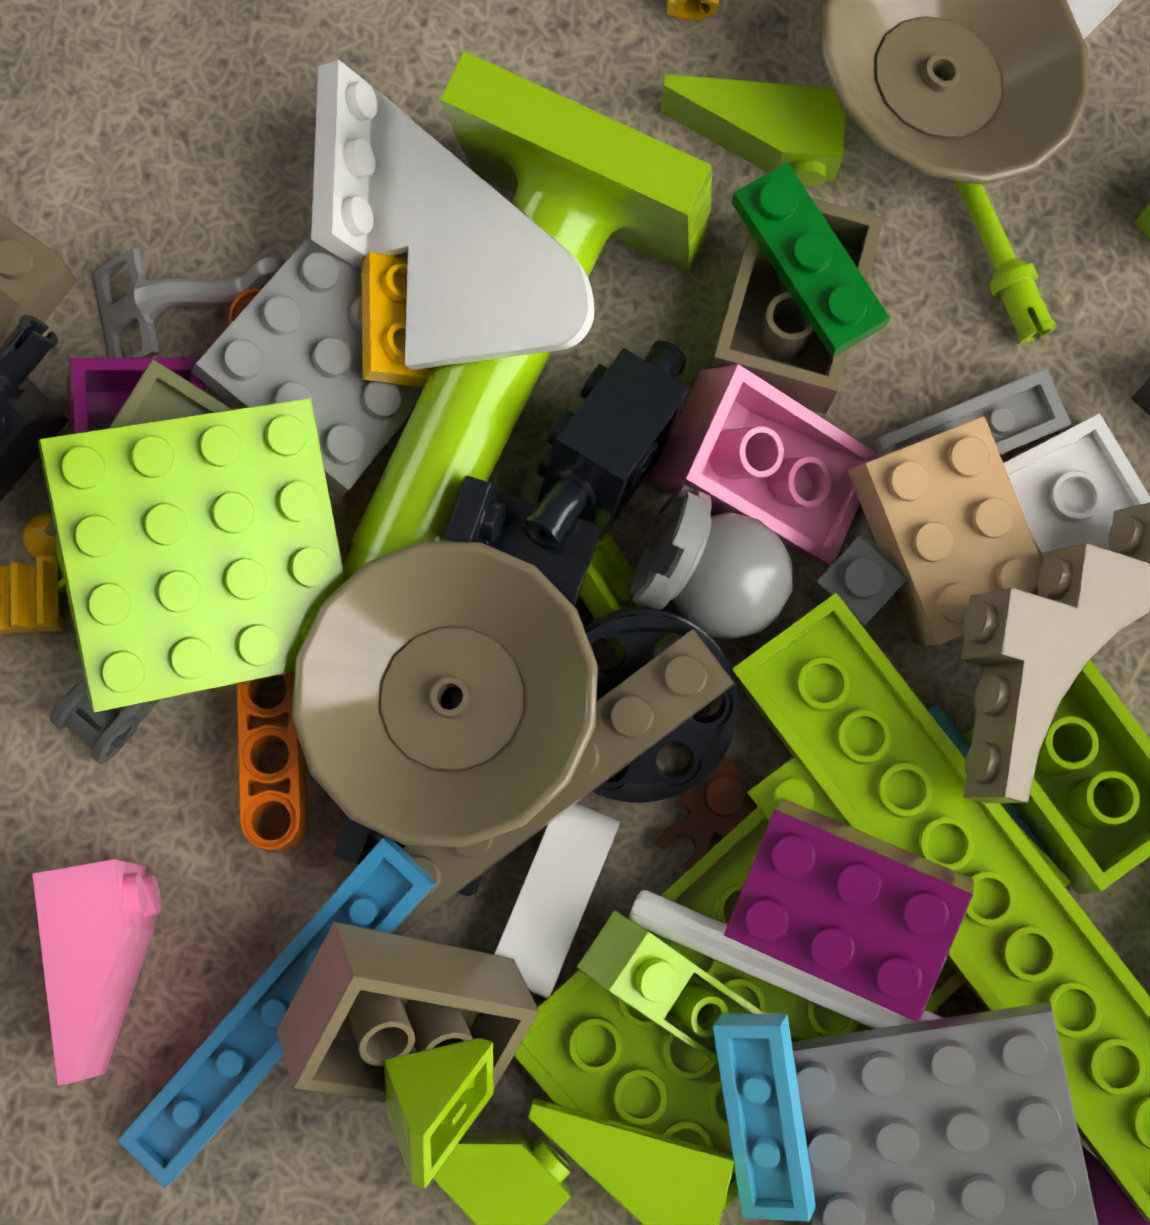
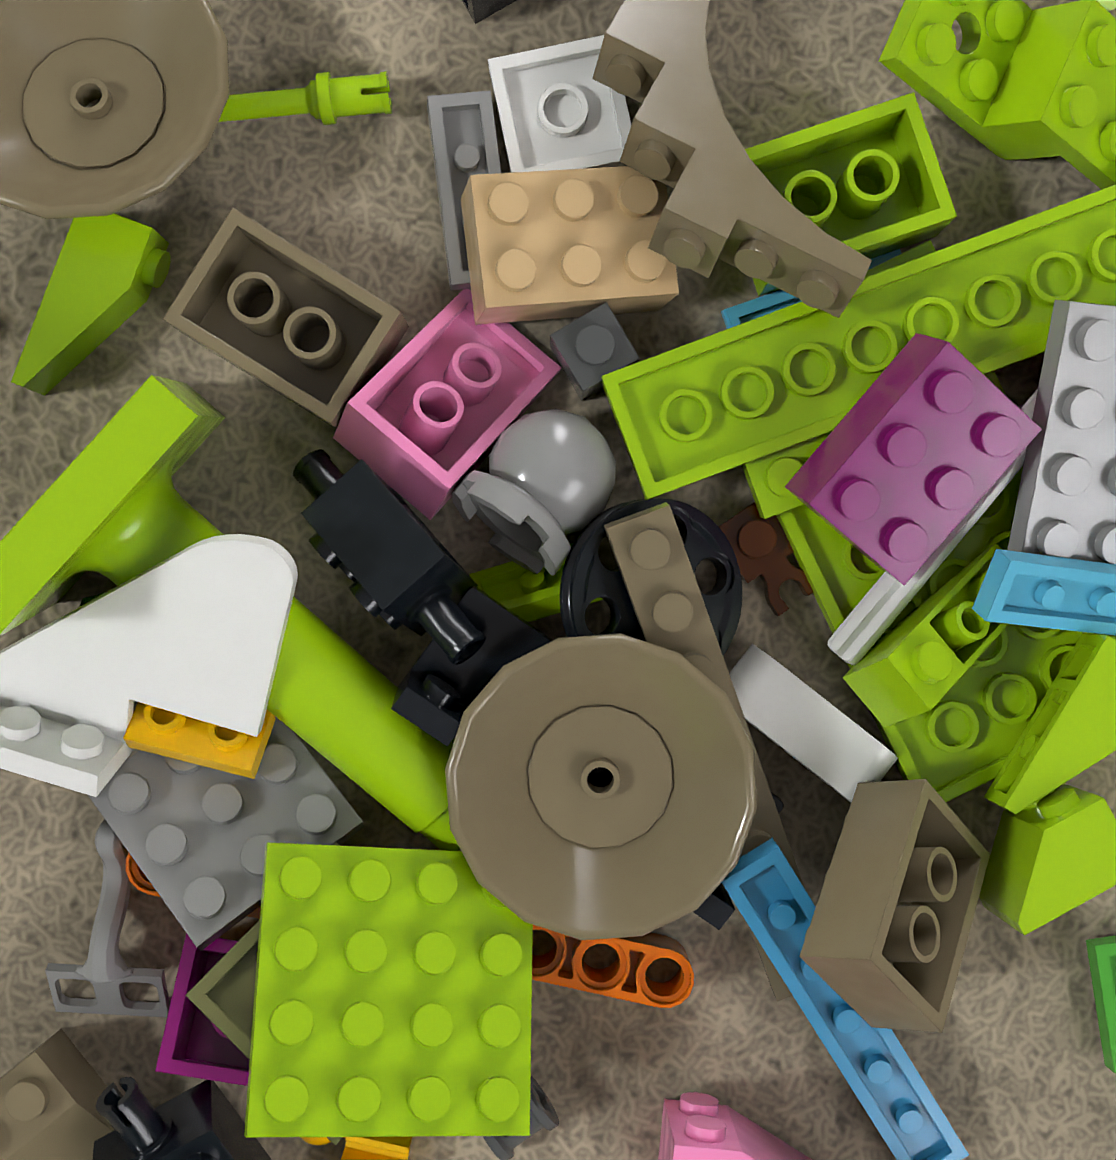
camera: 75 degrees left, 10 degrees up
(435, 1101) = (984, 900): lime slope -> none
(810, 260) = (256, 297): green plate -> none

